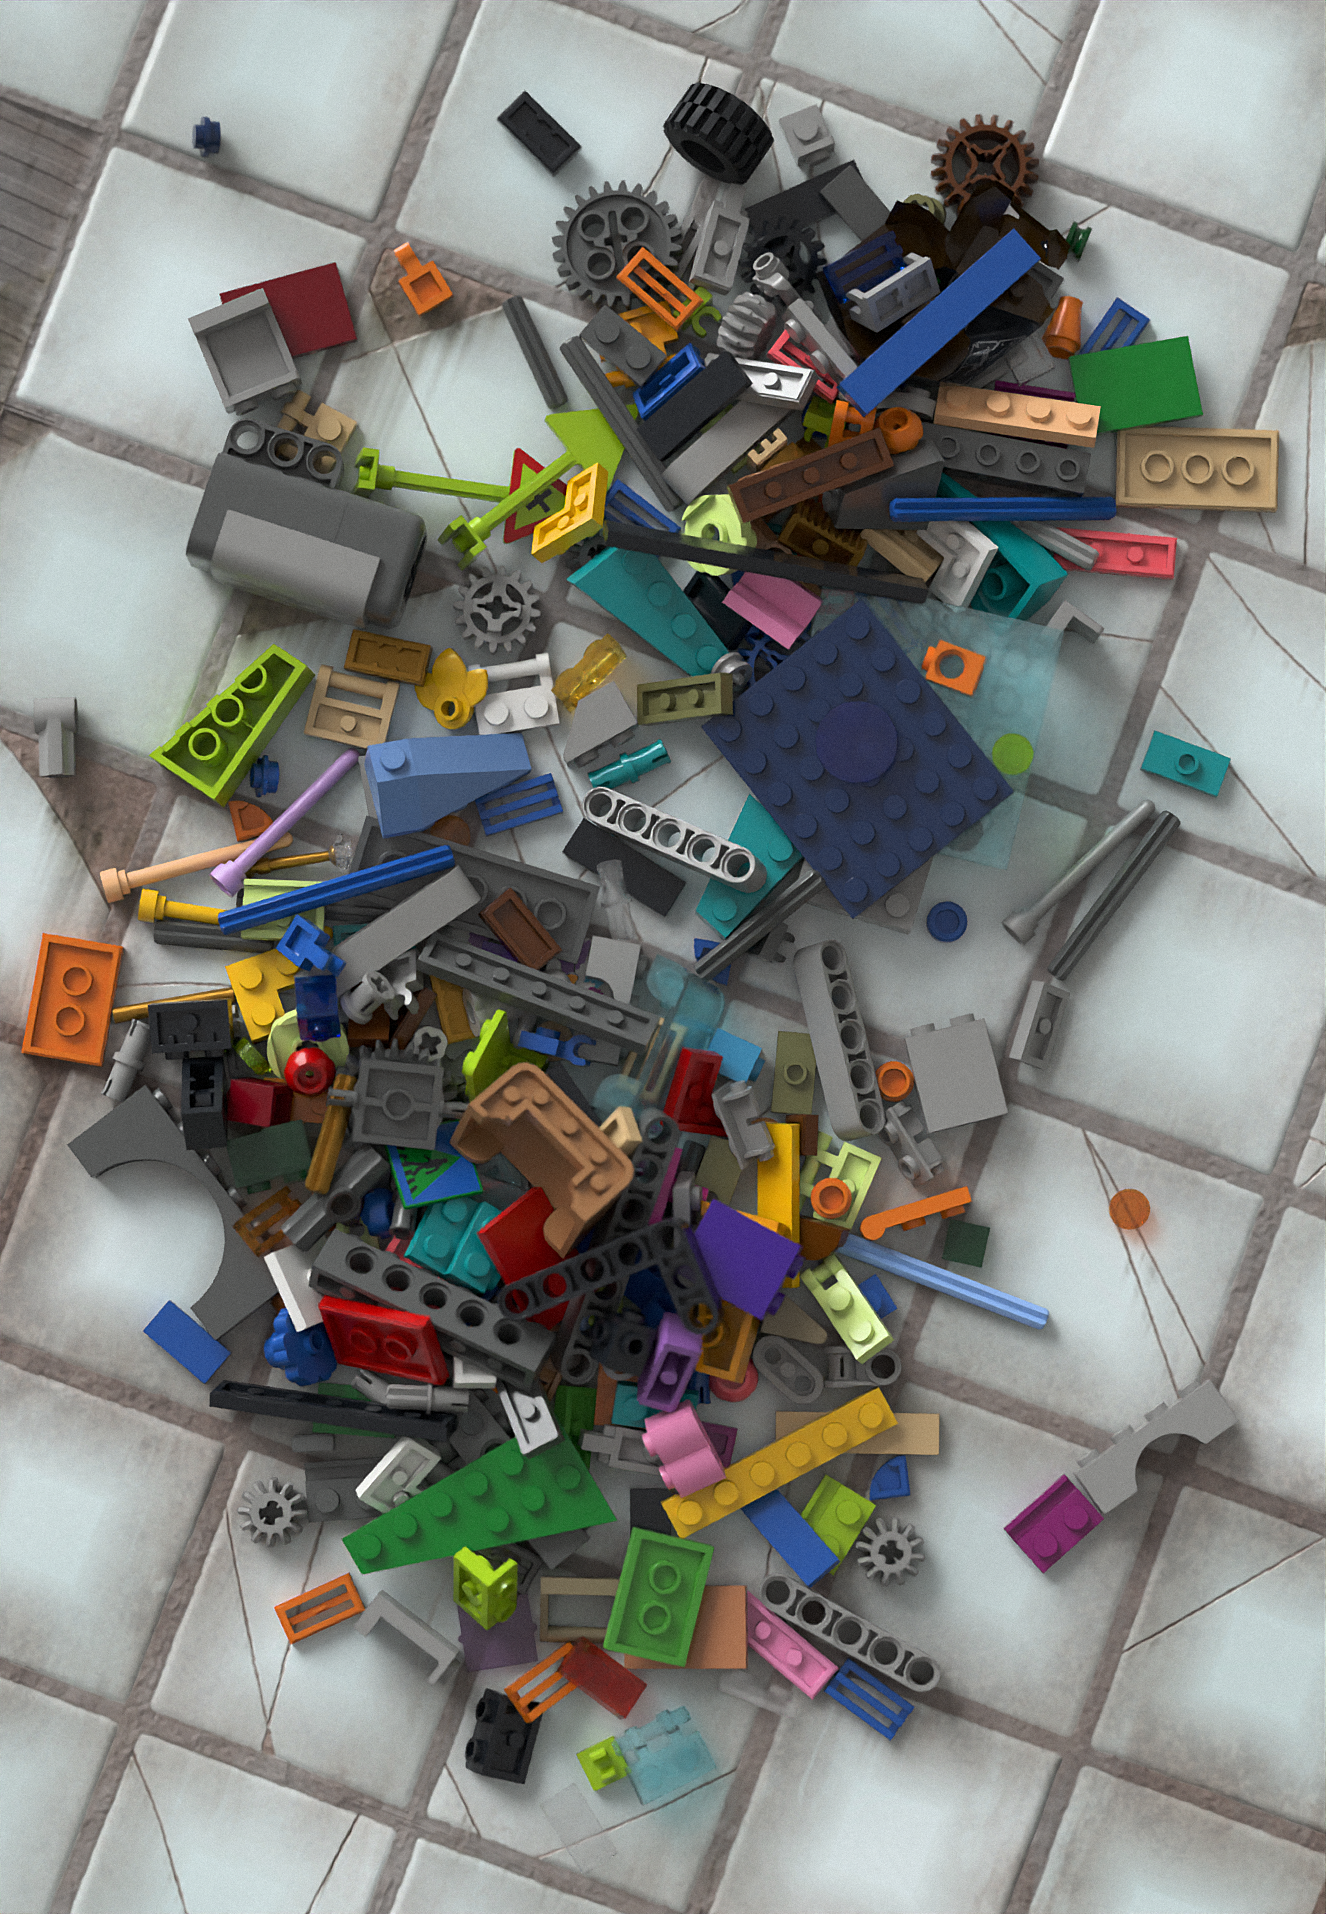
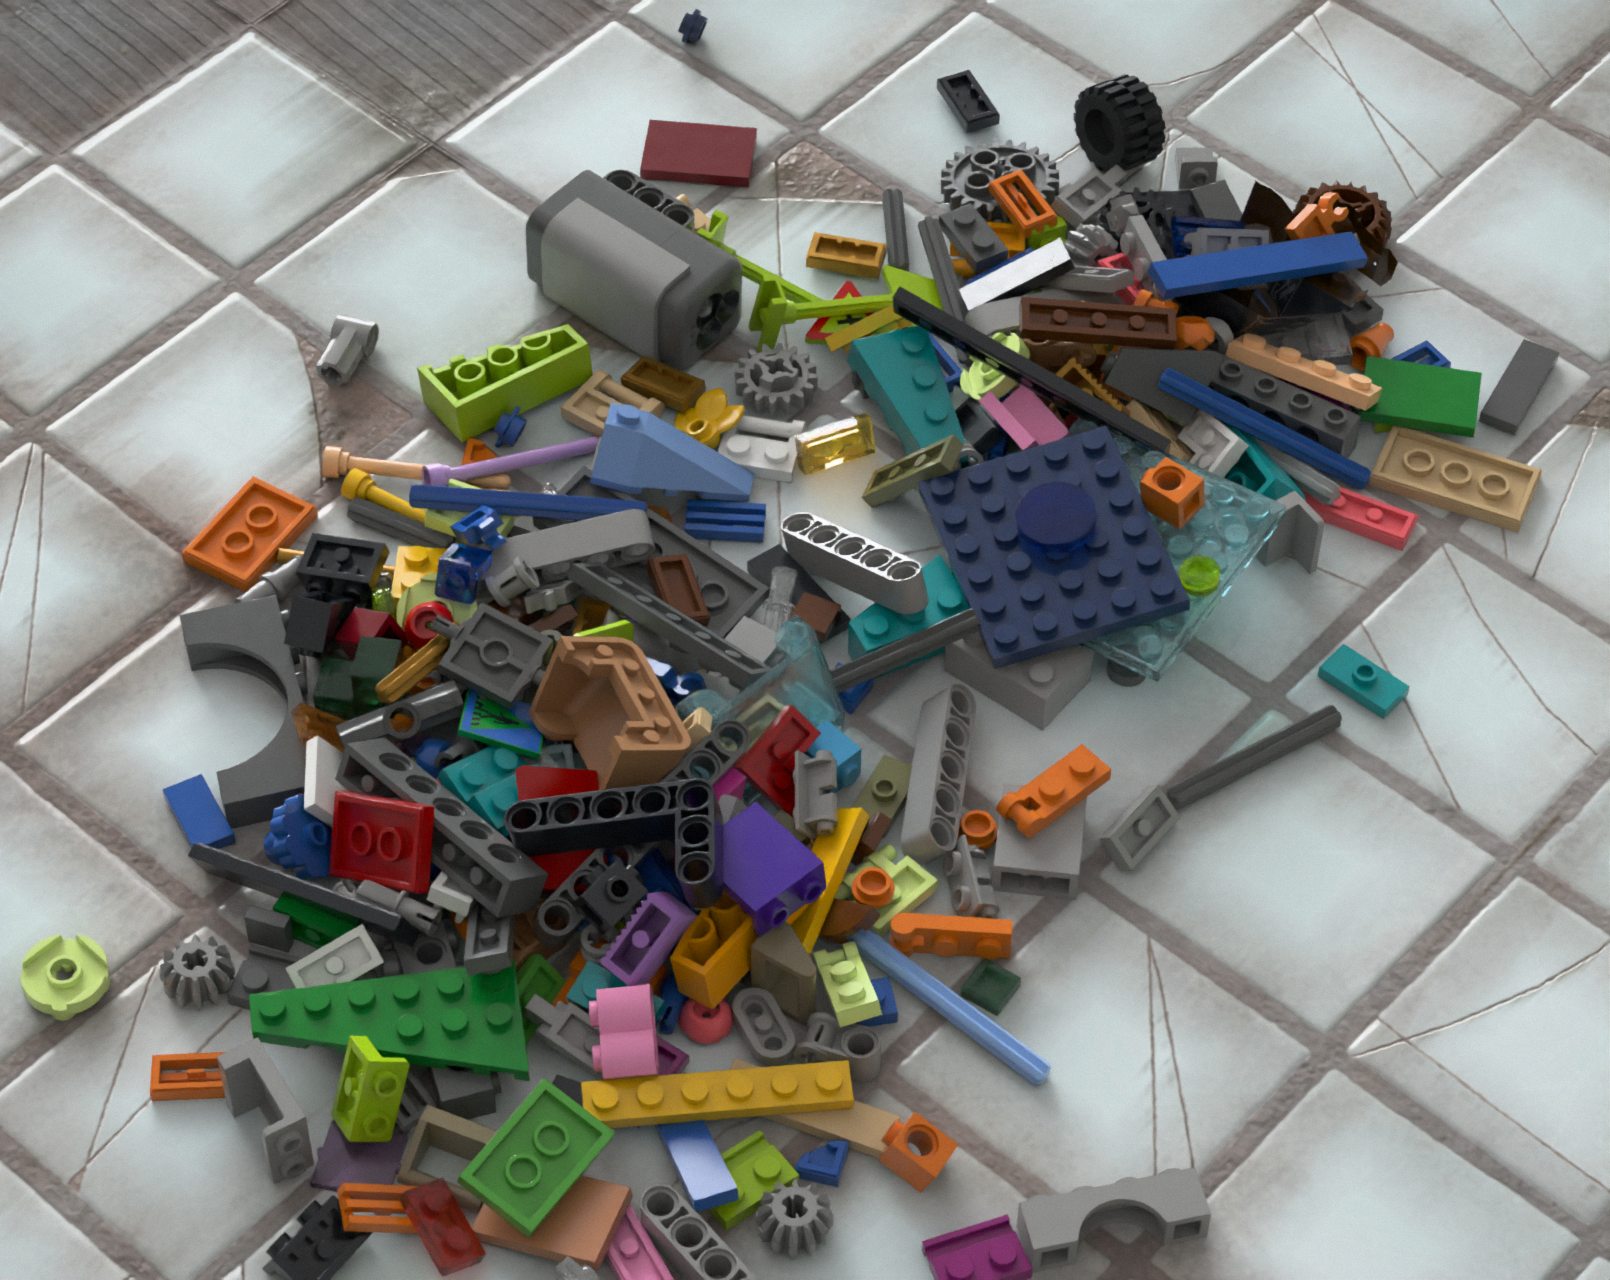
camera: 20 degrees right, 35 degrees down
(166, 1580) = (69, 996): none -> yellowish green plate
(245, 352) = (653, 143): light grey panel -> none
(423, 284) = (822, 161): orange plate -> none
(499, 409) = (846, 255): none -> pearl gold plate
(598, 721) = (824, 481): light grey slope -> none
(630, 766) = (853, 519): teal pin -> none
(654, 900) = (818, 613): none -> reddish brown tile
(767, 947) = (906, 680): dark grey tile -> none
(946, 922) = (1083, 727): blue tile -> none
(957, 1033) = (1054, 791): none -> orange plate
(974, 234) = (1317, 219): none -> orange plate
(984, 1454) = (931, 1142): none -> orange brick
(1022, 924) = (1156, 748): light grey piece -> none
(1077, 239) = (1404, 292): dark green bush -> none
(1129, 1209) = (1168, 1011): clear orange tile -> none
(1225, 322) = (1519, 386): none -> dark grey tile

